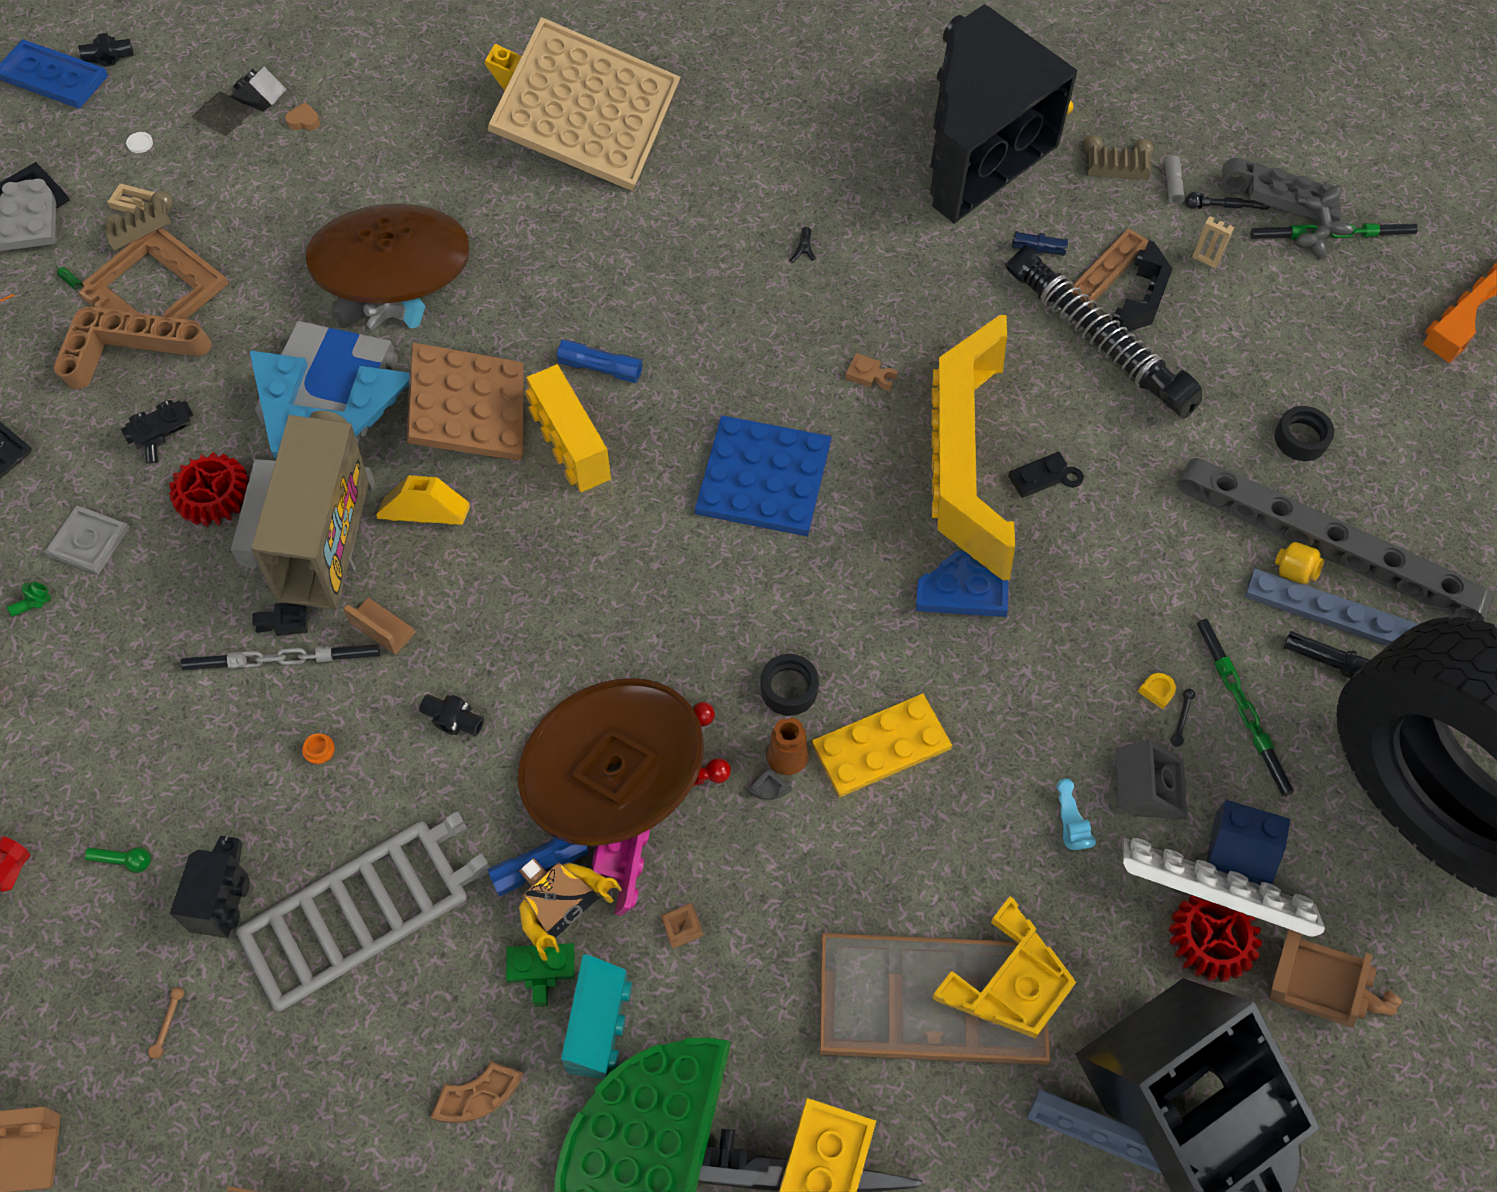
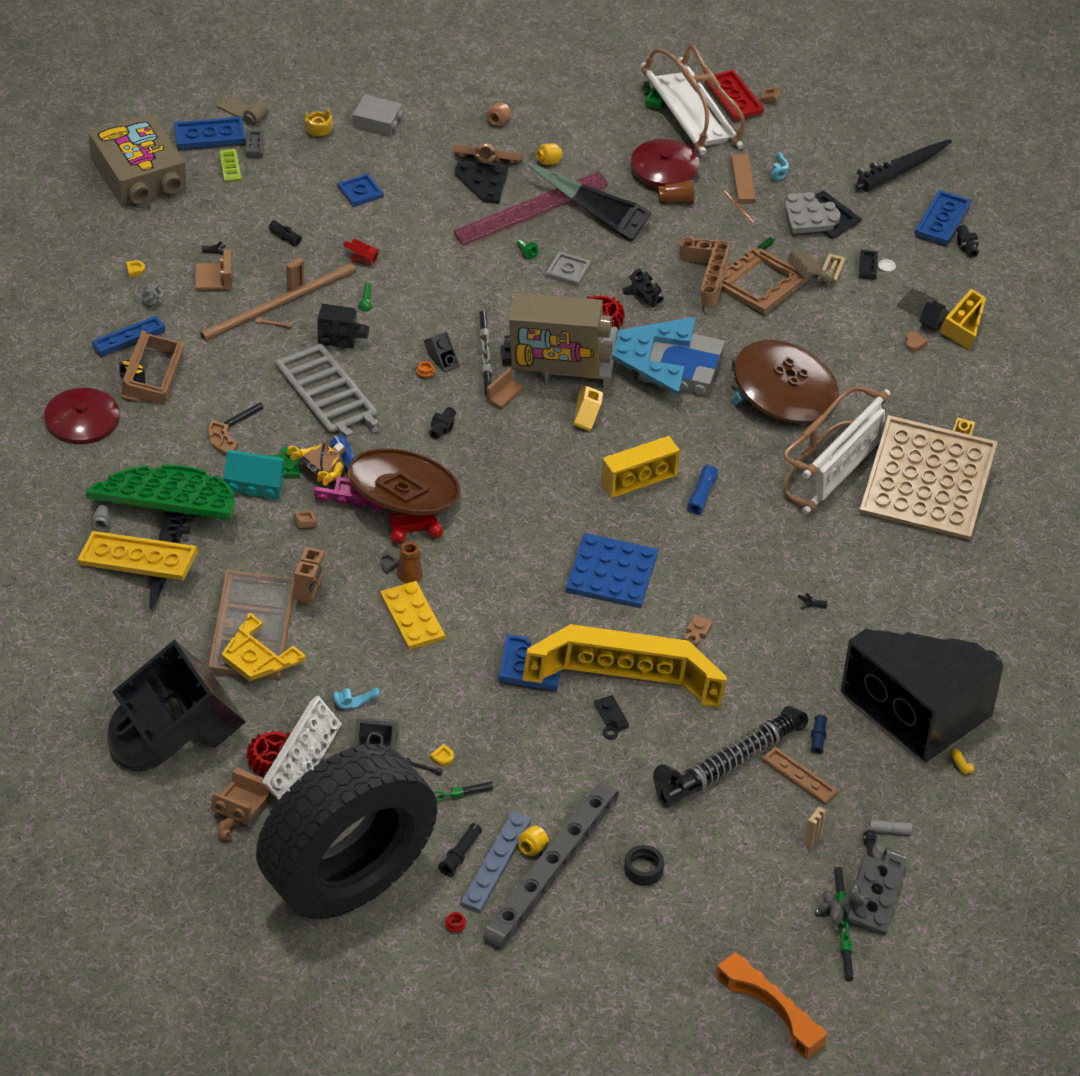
camera: 90 degrees right, 15 degrees down
(58, 981) = (295, 274): none -> medium nougat tile
(137, 159) = (868, 264): none -> black plate
(178, 1133) = (215, 330): none -> medium nougat piece
(277, 721) = (442, 351): none -> black slope
(283, 57) = (964, 319): none -> yellow wedge
(415, 1058) = (245, 414): none -> black piece
(465, 402) = (663, 412): medium nougat plate -> none
(520, 156) = (835, 468): none -> white piece
(789, 706) = (450, 582): black tyre -> none
(850, 903) = (308, 575): none -> medium nougat hips
(1118, 164) = (906, 795): dark tan gear -> none
(1157, 269) = (800, 797): black slope -> none

